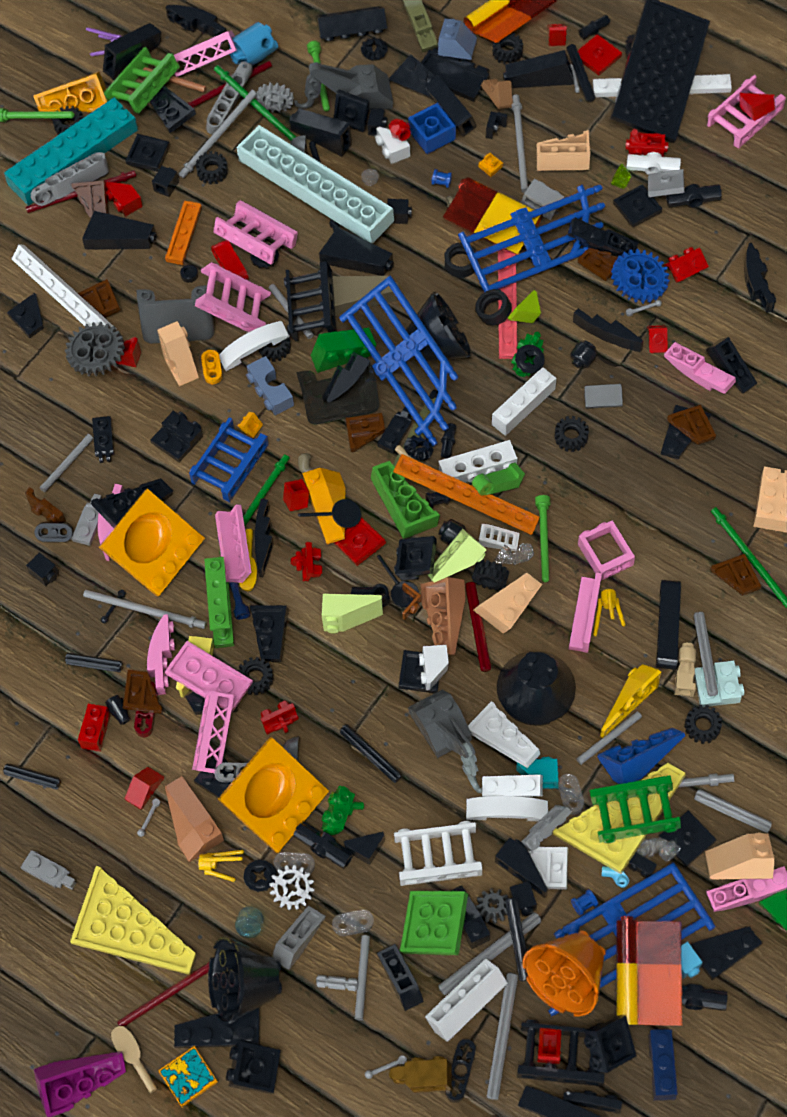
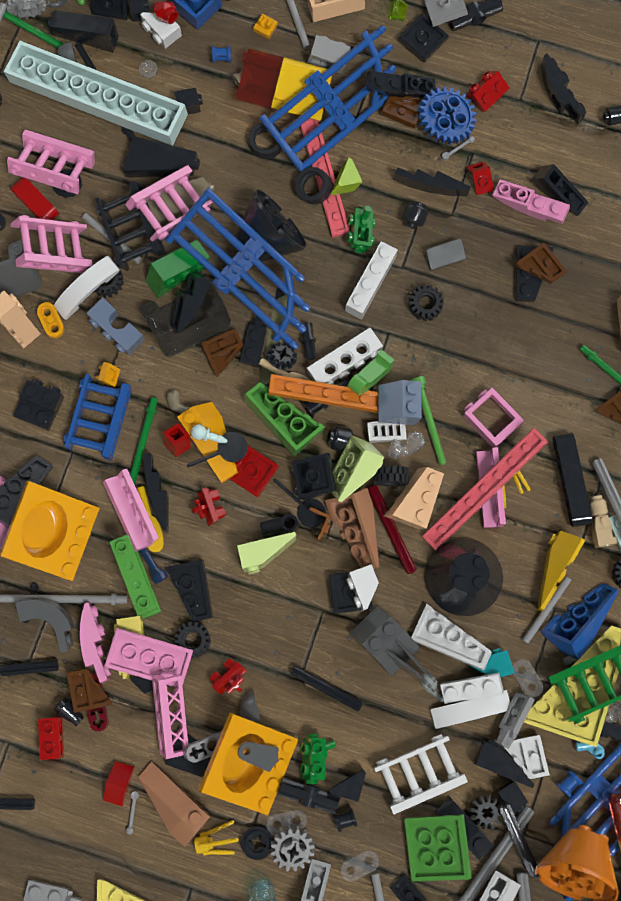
camera: 20 degrees left, 15 degrees up
(121, 608) = (51, 612): none -> dark grey arch
(285, 786) = (259, 755): none -> dark grey piece
(318, 489) = (199, 432): none -> light aqua bar
(346, 271) = (154, 192): none -> bright pink fence
(351, 876) = (345, 820): none -> black bush
(518, 511) = (400, 402): none -> sand blue slope
(530, 351) = (375, 236): black gear -> none
(577, 607) = (485, 489): none -> coral tile

